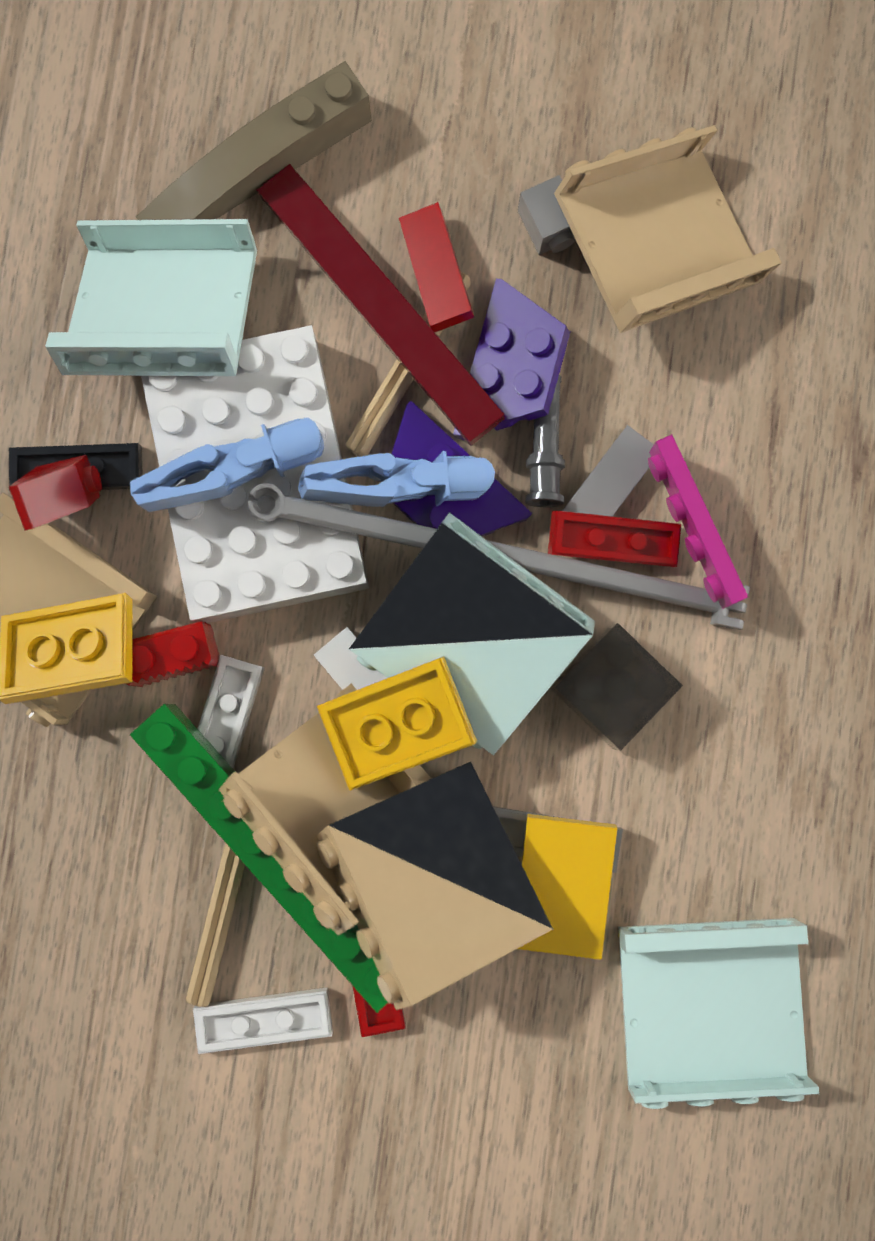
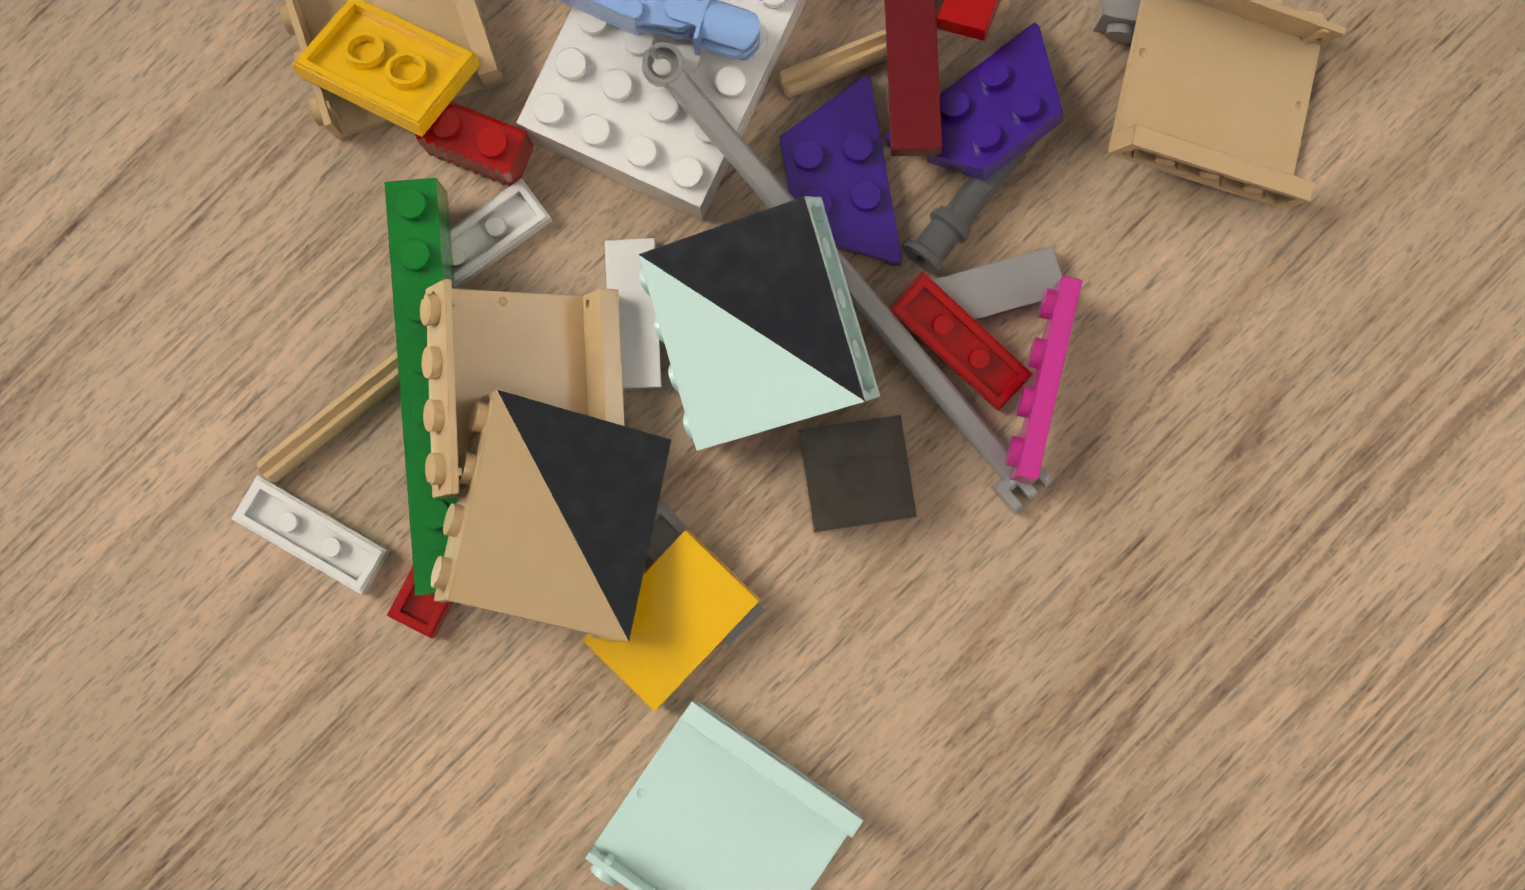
camera: 40 degrees right, 0 degrees up
(397, 723) = (630, 353): yellow tile -> none
(400, 479) = (797, 133): light blue arm -> none

